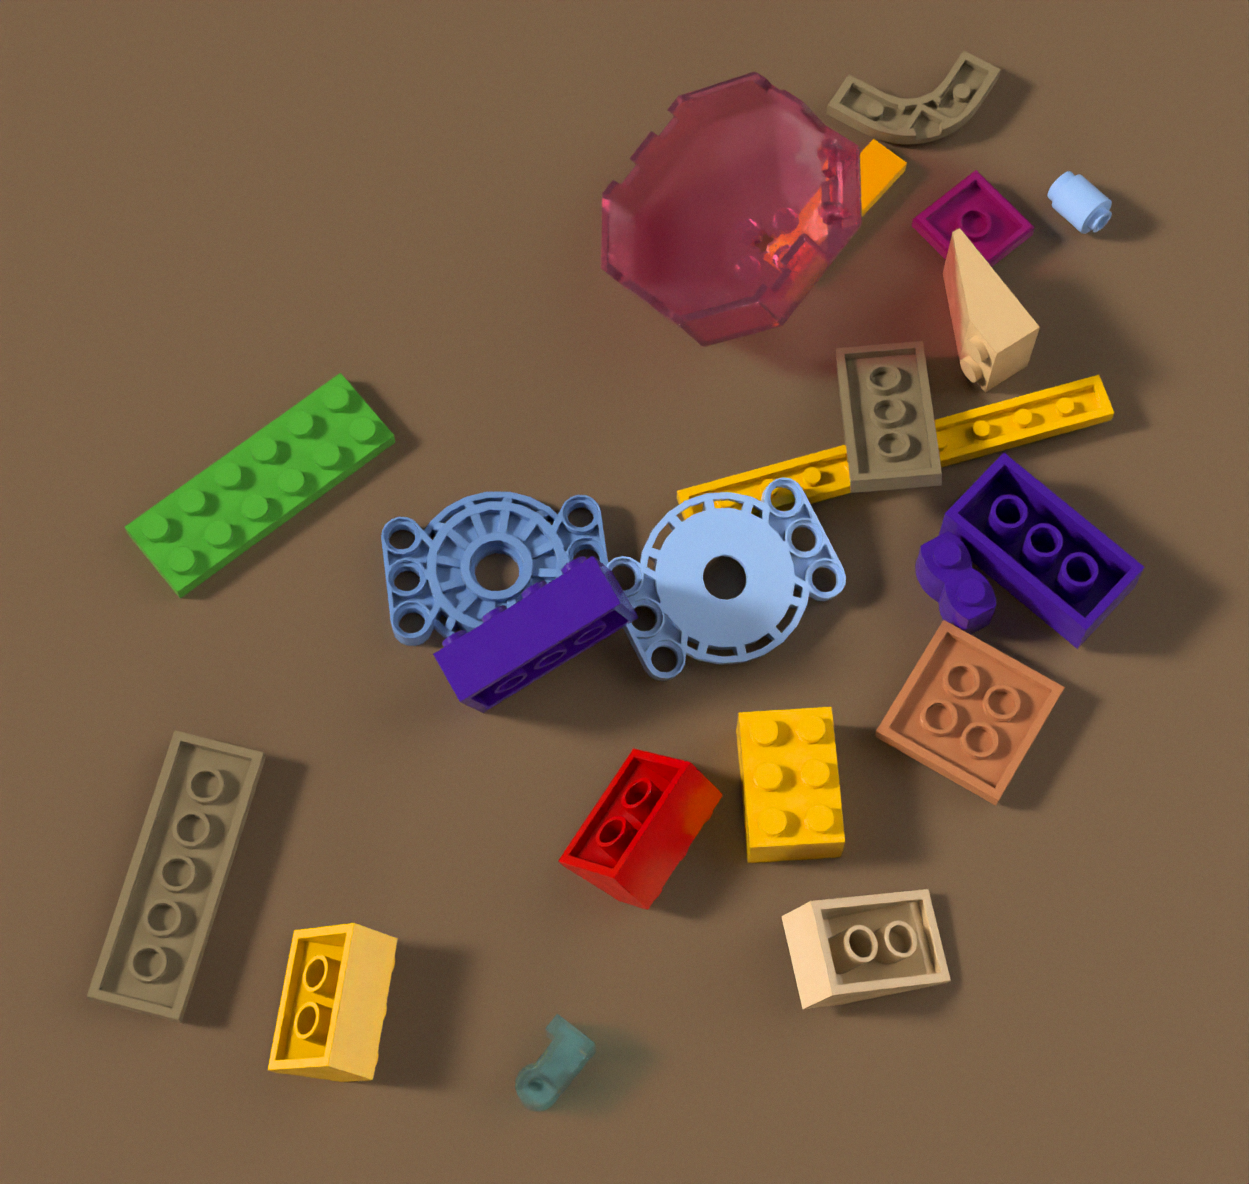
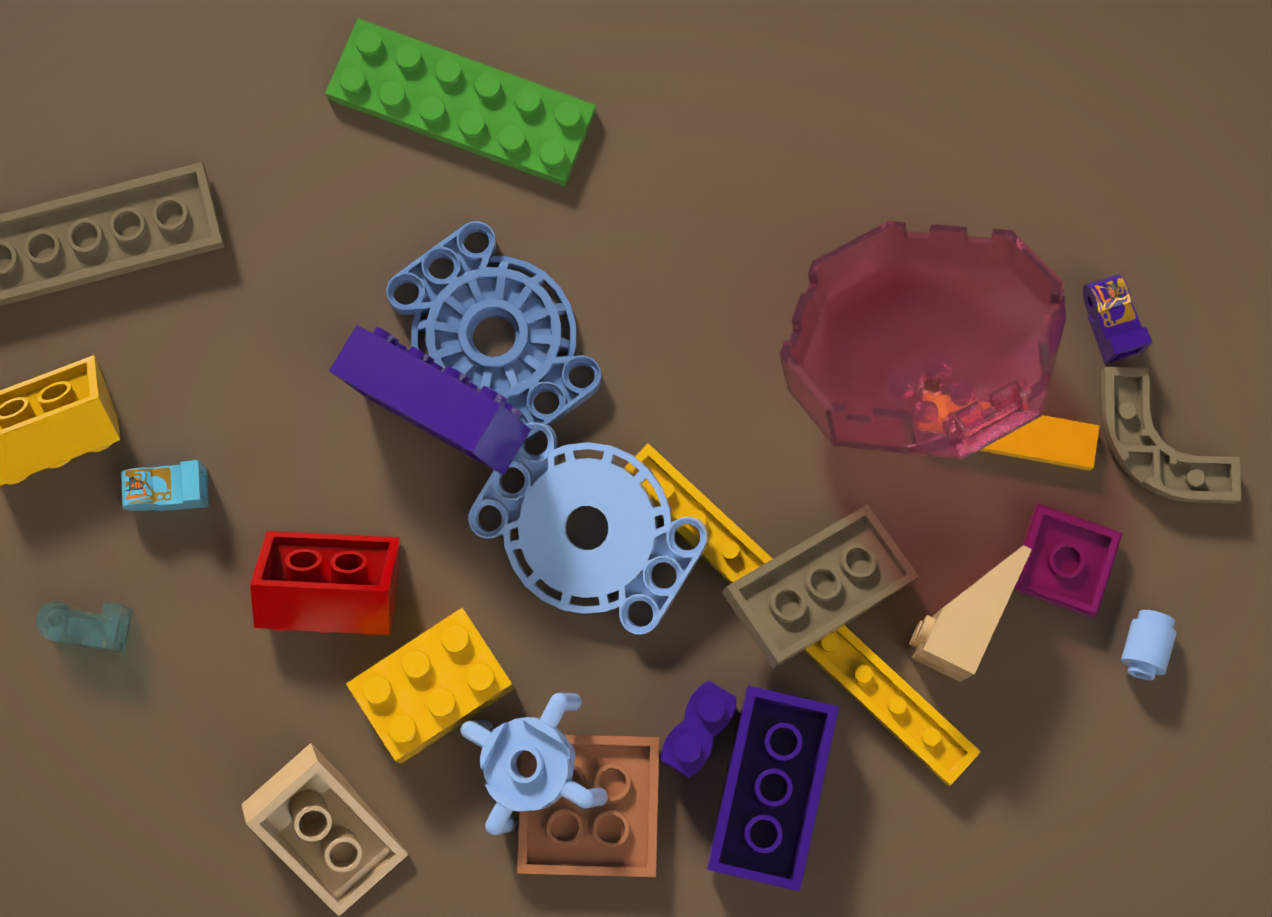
camera: 60 degrees right, 10 degrees up
(465, 924) = (165, 487): none -> medium azure leg
(797, 75) = (1114, 319): none -> dark purple leg
(906, 759) = (554, 764): none -> light blue plate

